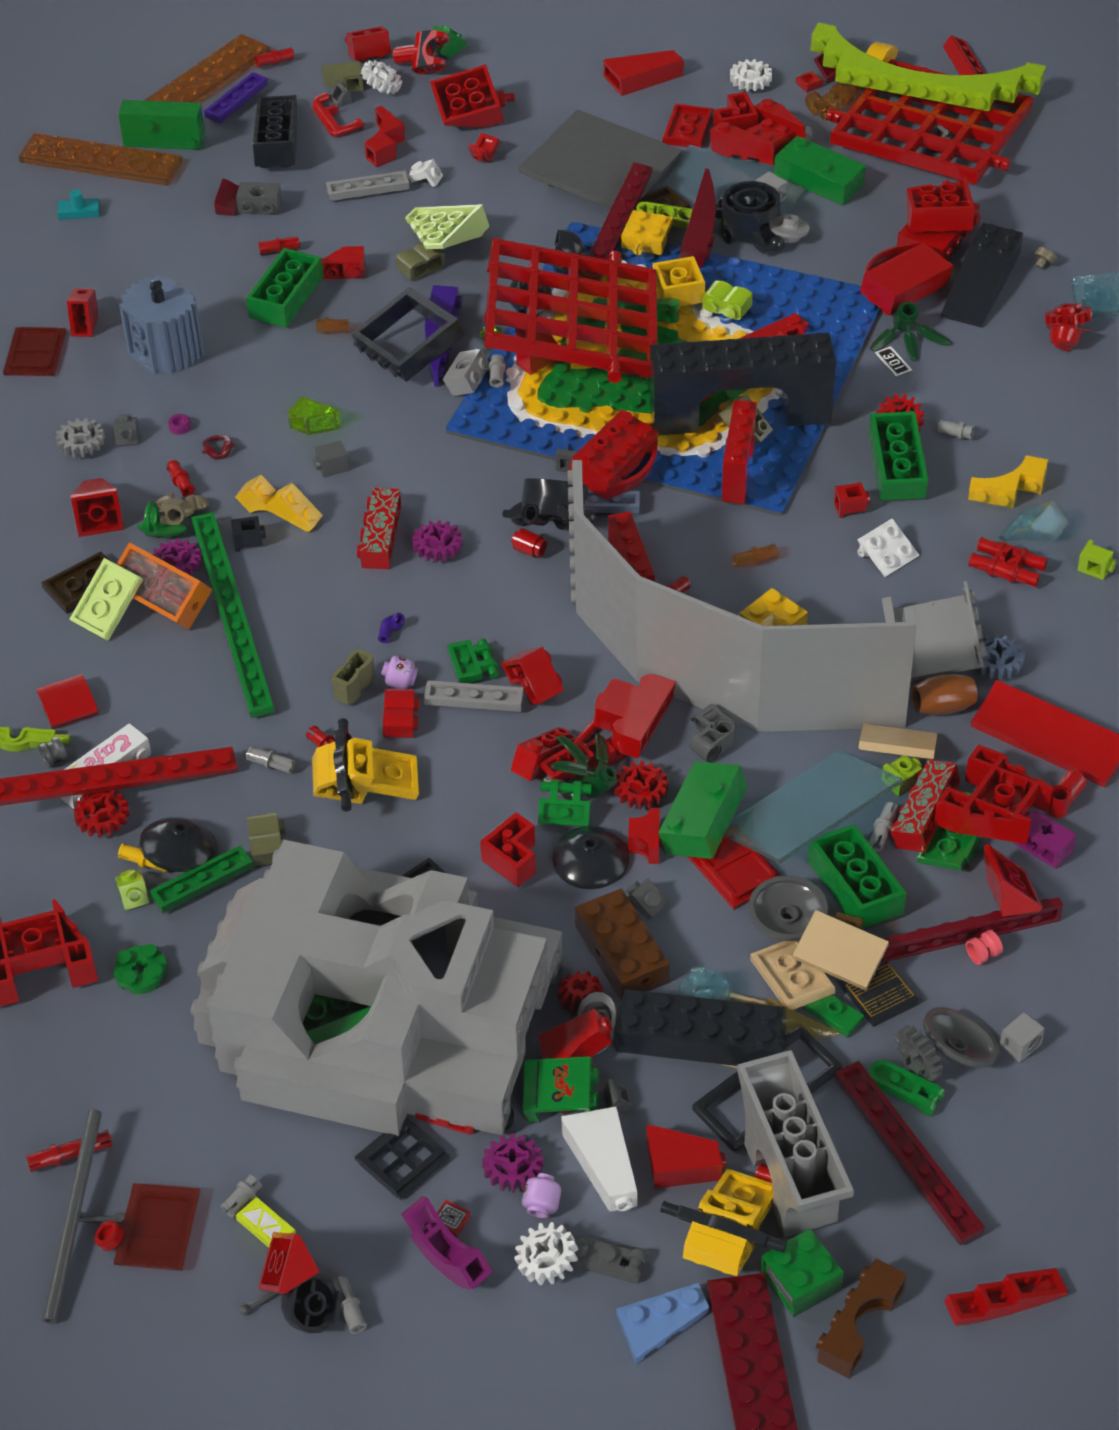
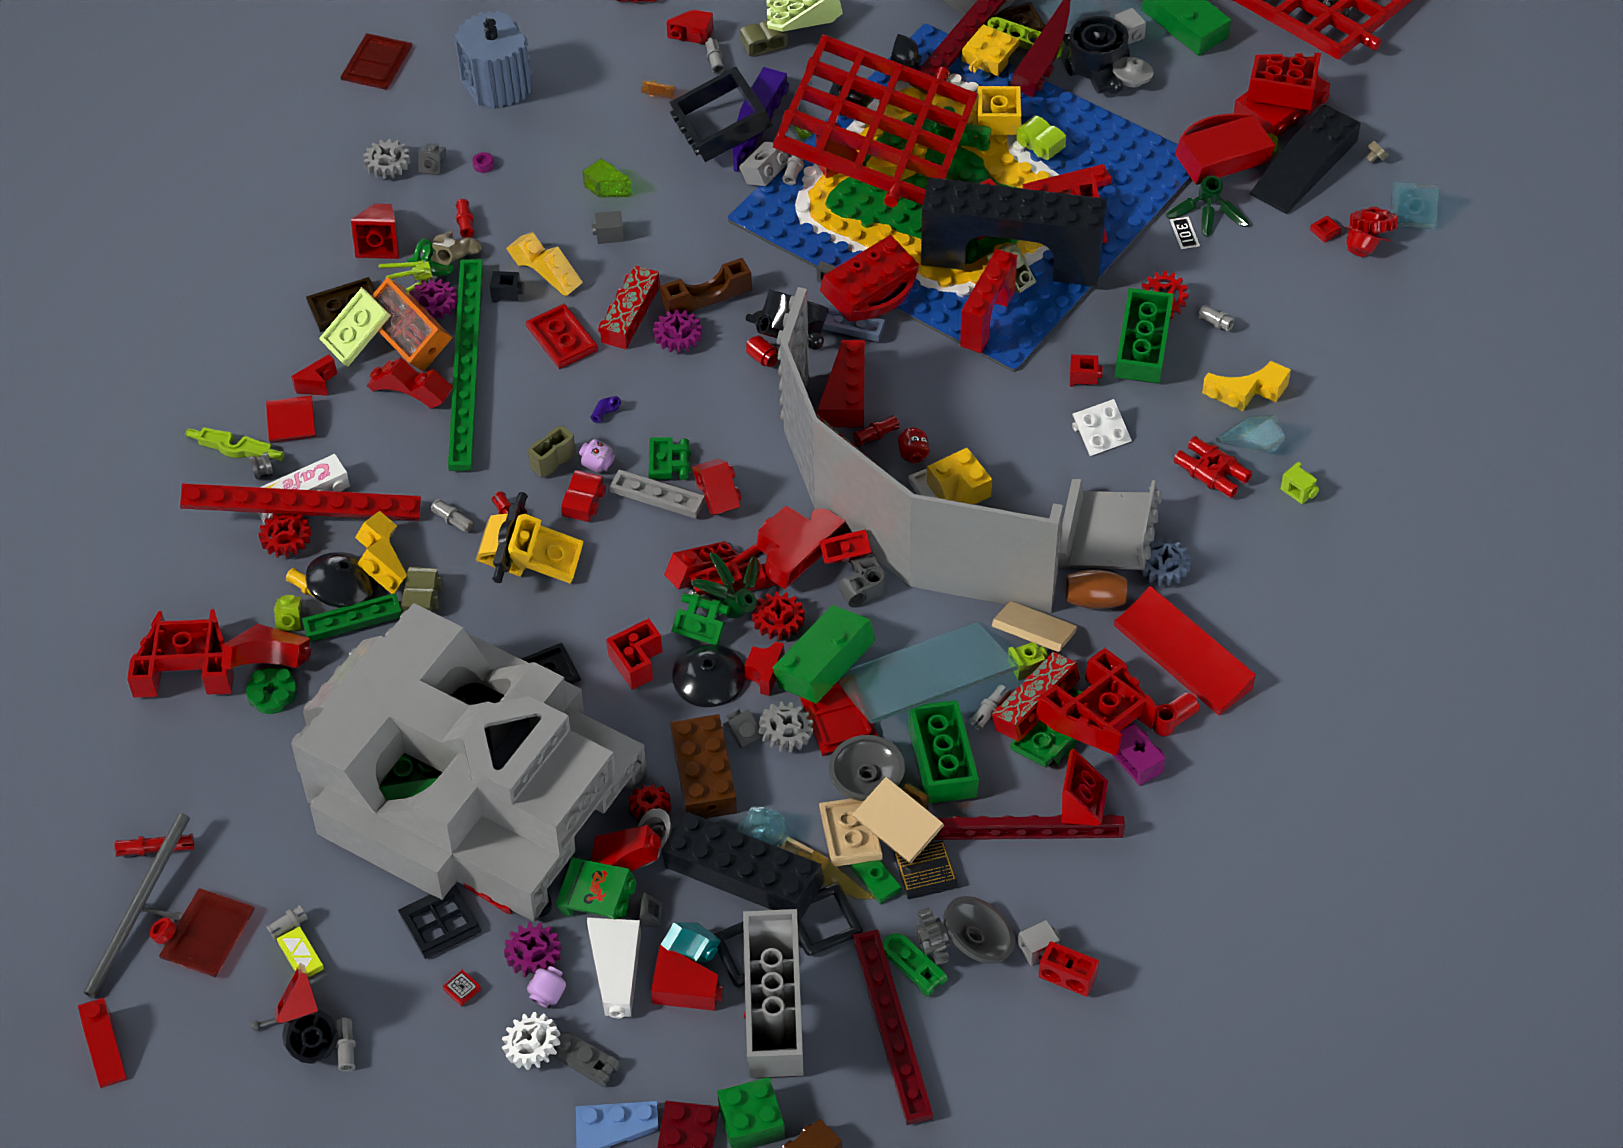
camera: 15 degrees right, 5 degrees up
(79, 656) = (312, 378): none -> red slope
(80, 305) = (429, 30): red torso -> none
(82, 1365) = (102, 1042): none -> red slope
(125, 924) = (266, 645): none -> red arch
(154, 533) = (420, 270): none -> lime plant
(170, 636) = (400, 376): none -> red arch
(213, 812) = (380, 558): none -> yellow arch
(226, 448) = (516, 197): dark red piece -> none
(284, 287) = (624, 41): green brick -> none
(319, 569) = (561, 336): none -> red tile
(378, 286) = (715, 56): none -> light grey axle
(450, 1256) = (442, 1011): magenta arch -> none
(474, 484) = (731, 280): none -> reddish brown arch
(678, 1115) = (691, 941): none -> teal arch
(687, 704) = (845, 547): none -> red slope
(689, 888) = (785, 726): none -> light grey gear
(714, 594) = (913, 445): none -> red head
(727, 1222) = (698, 1052): yellow piece -> none
(755, 555) = (971, 408): clear orange axle -> none
(981, 948) = (1037, 847): coral wheel -> none
(1024, 333) = (1325, 229): none -> red tile
(1063, 1054) = (1068, 968): none -> red brick

